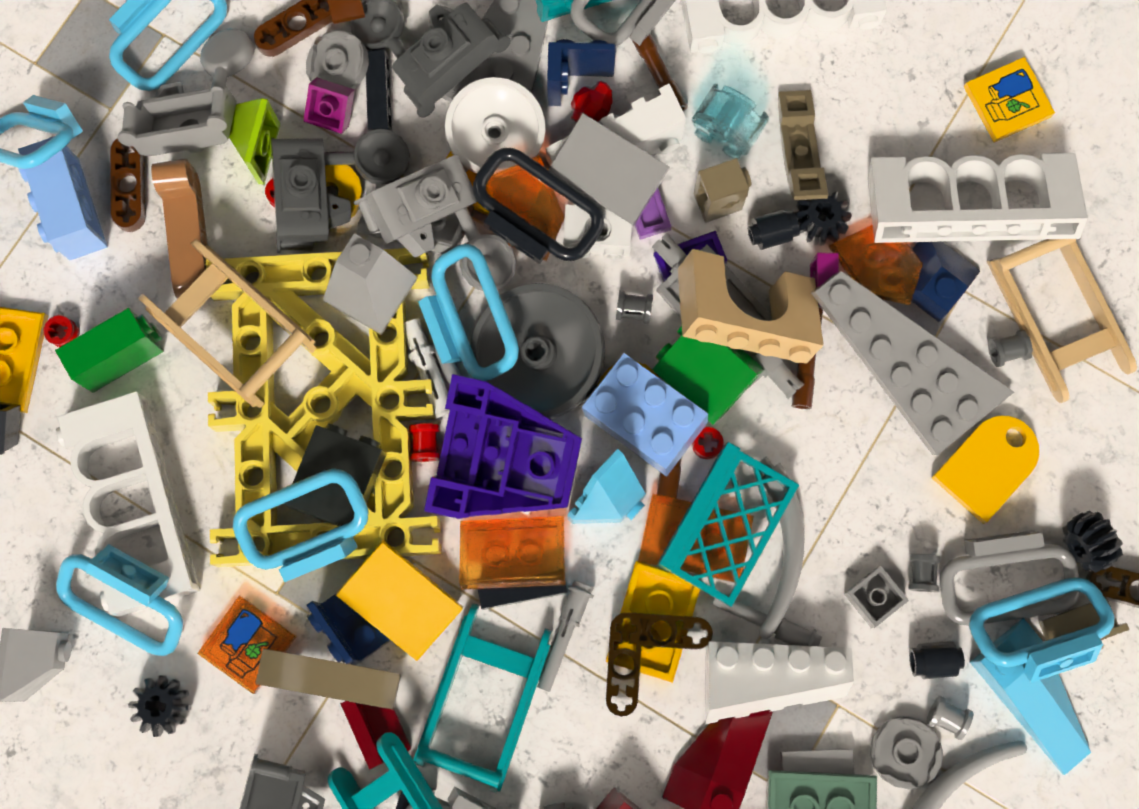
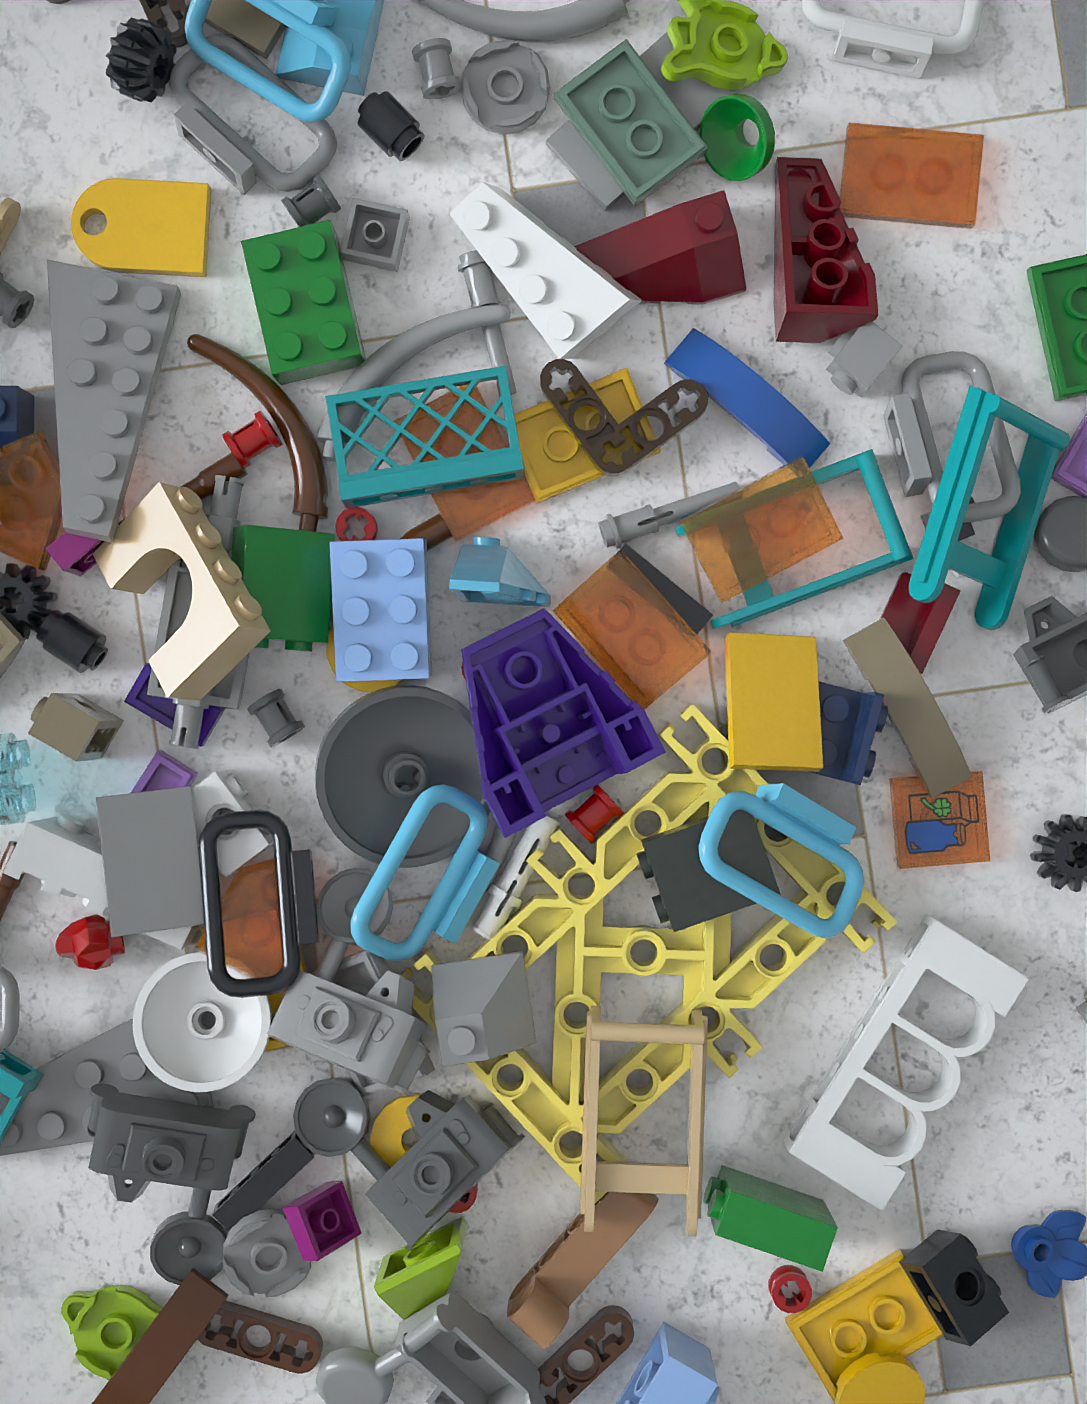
camera: 130 degrees left, 10 degrees up
(131, 579) = (980, 987): medium azure bar -> none
(507, 679) = (761, 529): none -> clear orange tile
(576, 59) = (59, 1005): dark blue bracket -> none
(591, 740) = (748, 398): none -> blue slope
(782, 450) = (305, 456): none -> reddish brown animal
(809, 424) = (252, 439): none -> red bush
(867, 520) = (303, 302): none -> green brick

